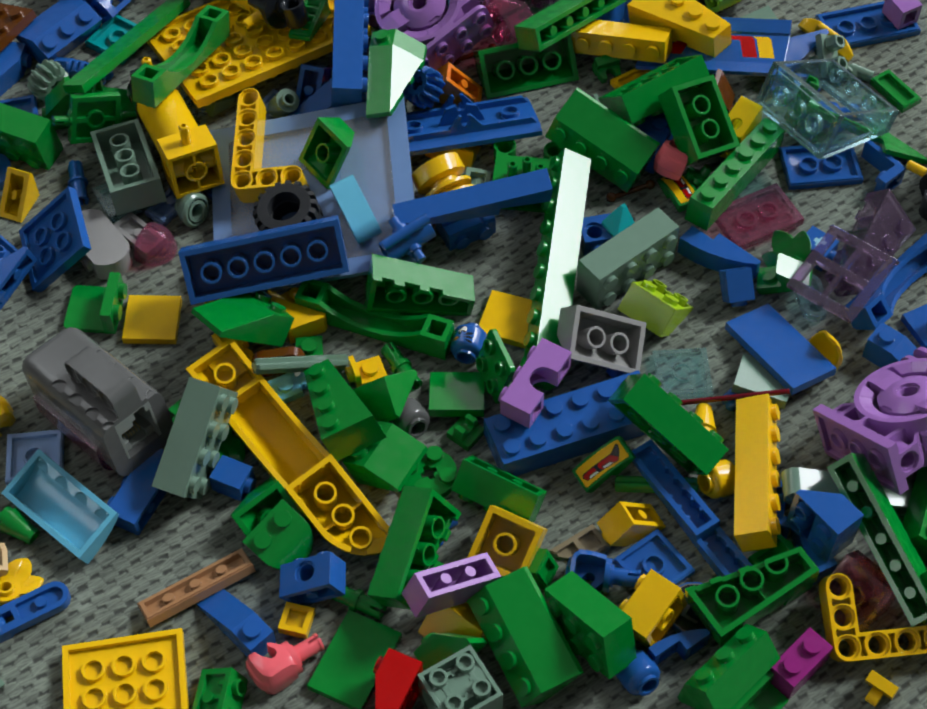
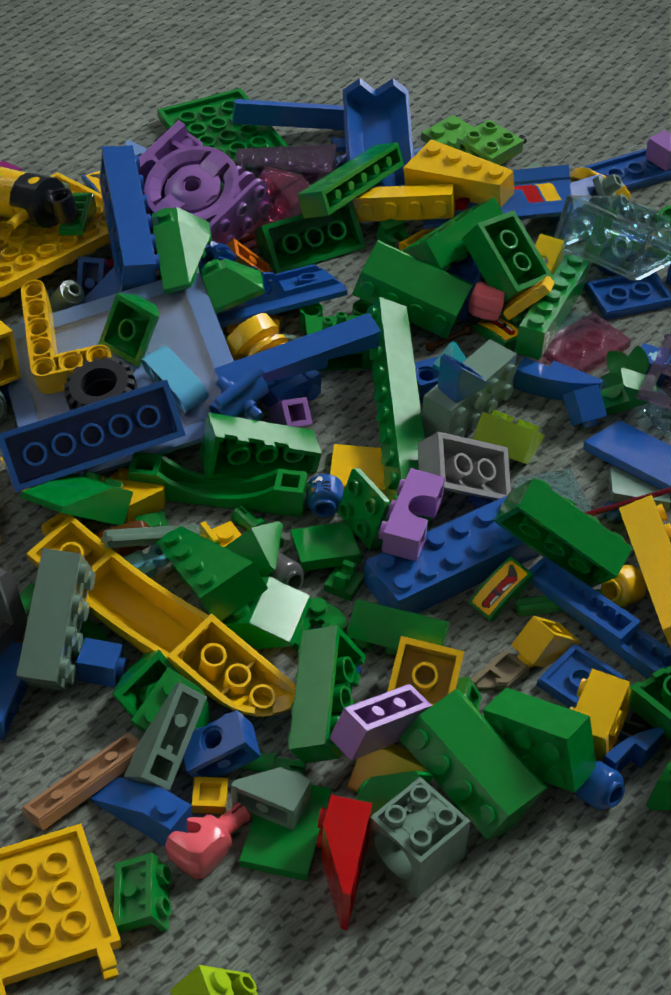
camera: 15 degrees left, 10 degrees down
(266, 566) = (166, 739): none -> sand green slope
(348, 633) = (274, 795): none -> sand green slope
(431, 114) = (231, 283): none -> green slope
(457, 256) = (291, 413): none -> medium lavender brick
(600, 570) = (533, 685): blue piece -> none
(615, 249) = (458, 379): none -> blue slope
(710, 164) = (528, 297): none -> yellow tile

